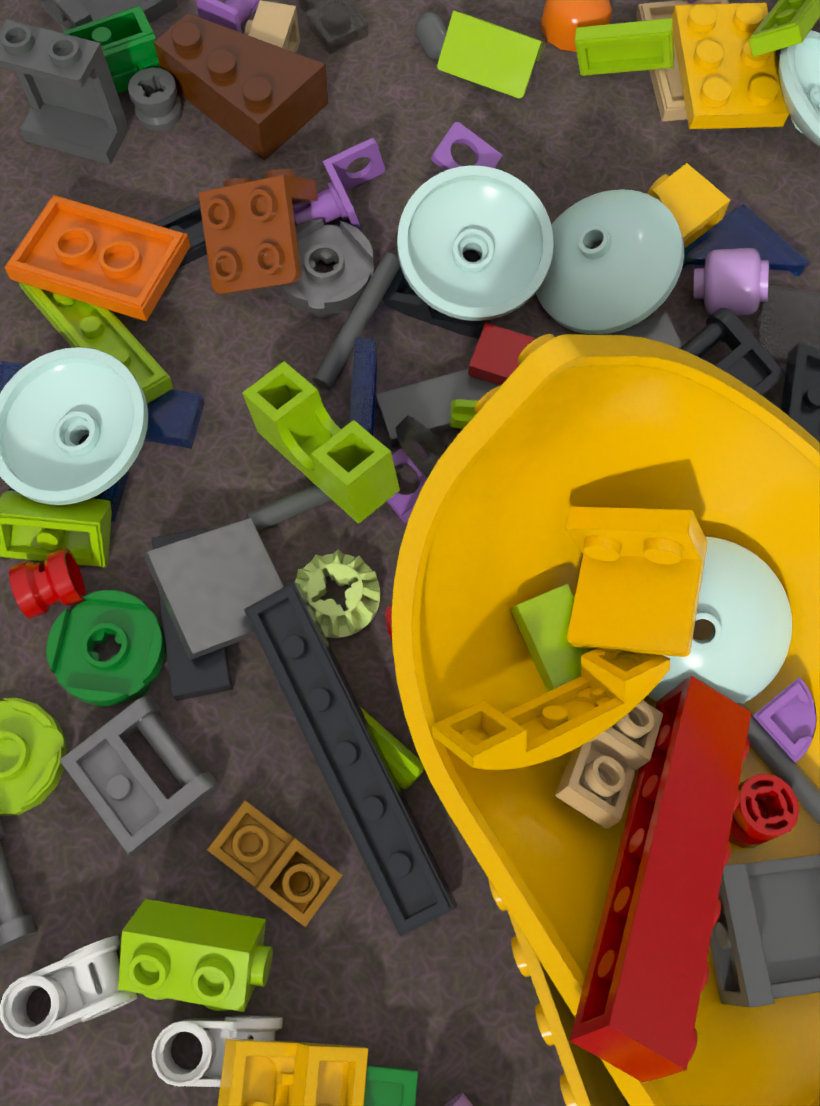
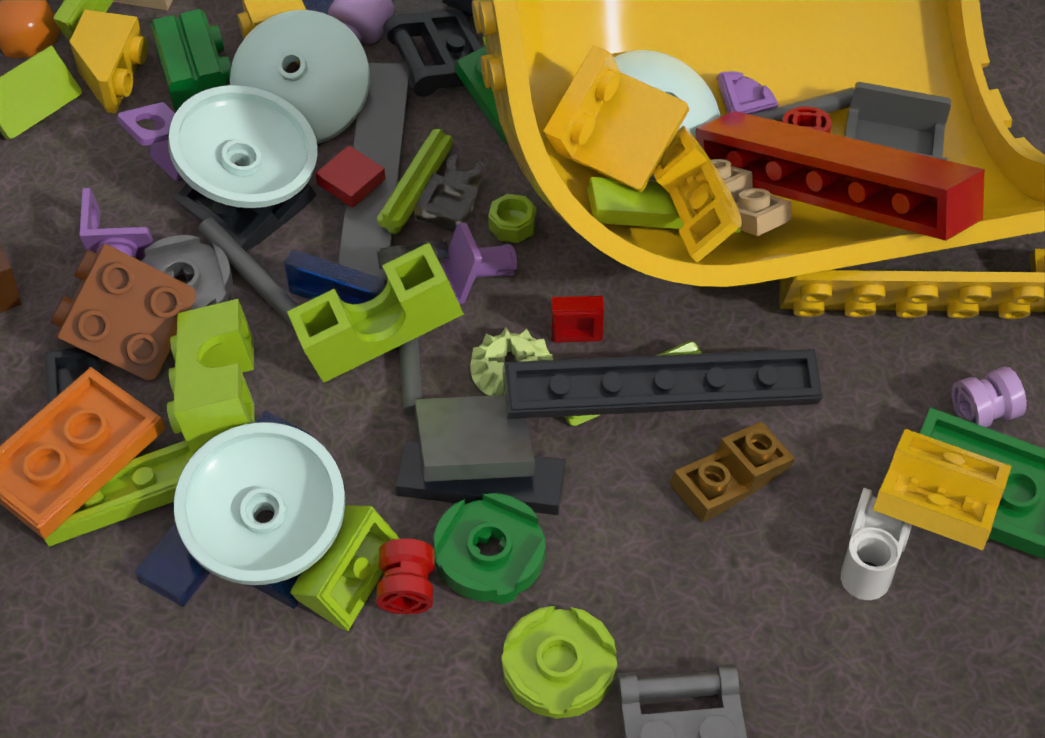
camera: 70 degrees left, 15 degrees down
(79, 990) = (795, 635): white piece -> none
(123, 787) = (625, 563): flat silver plate -> none
(194, 955) = (795, 532): lime brick -> none
(240, 315) = (208, 378): none -> lime arch
(563, 94) = (107, 54): none -> yellow slope
(592, 159) = (190, 55): none -> green brick

